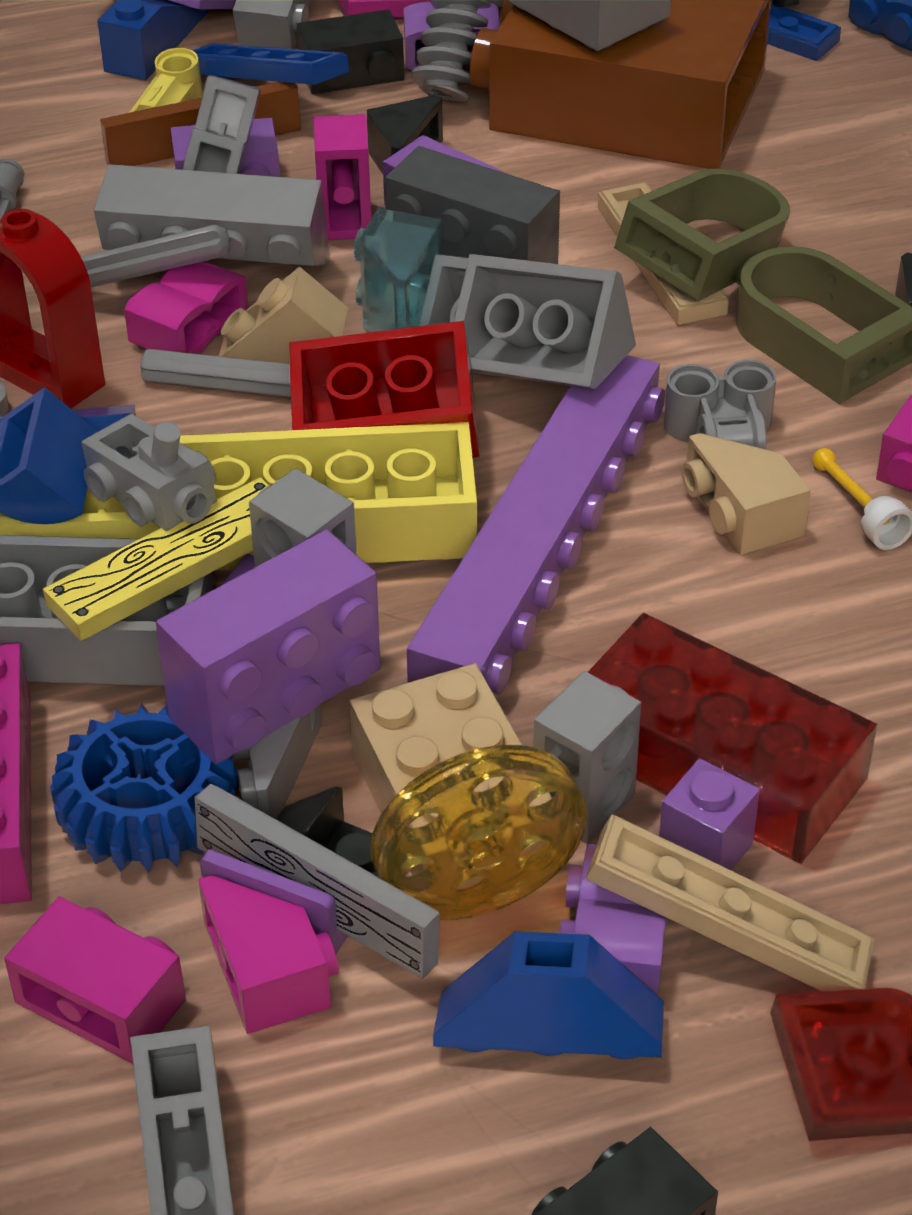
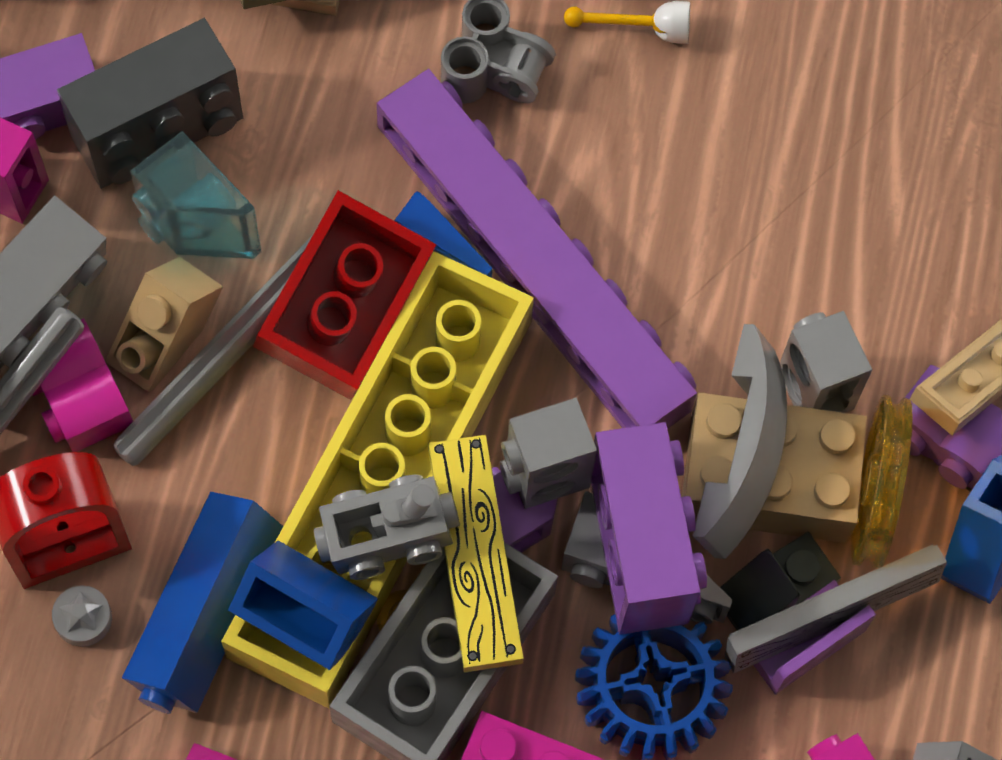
camera: 65 degrees left, 25 degrees up
(267, 953) = (861, 674): dark pink slope -> none
(429, 698) = (733, 506): none -> light grey slope
(503, 450) = (424, 219): none -> blue slope
(533, 317) = (328, 142): light grey slope -> none
(711, 814) = (907, 324): medium lavender brick -> none
(745, 721) = (844, 256): clear red brick -> none
(746, 491) = (590, 96): tan slope -> none

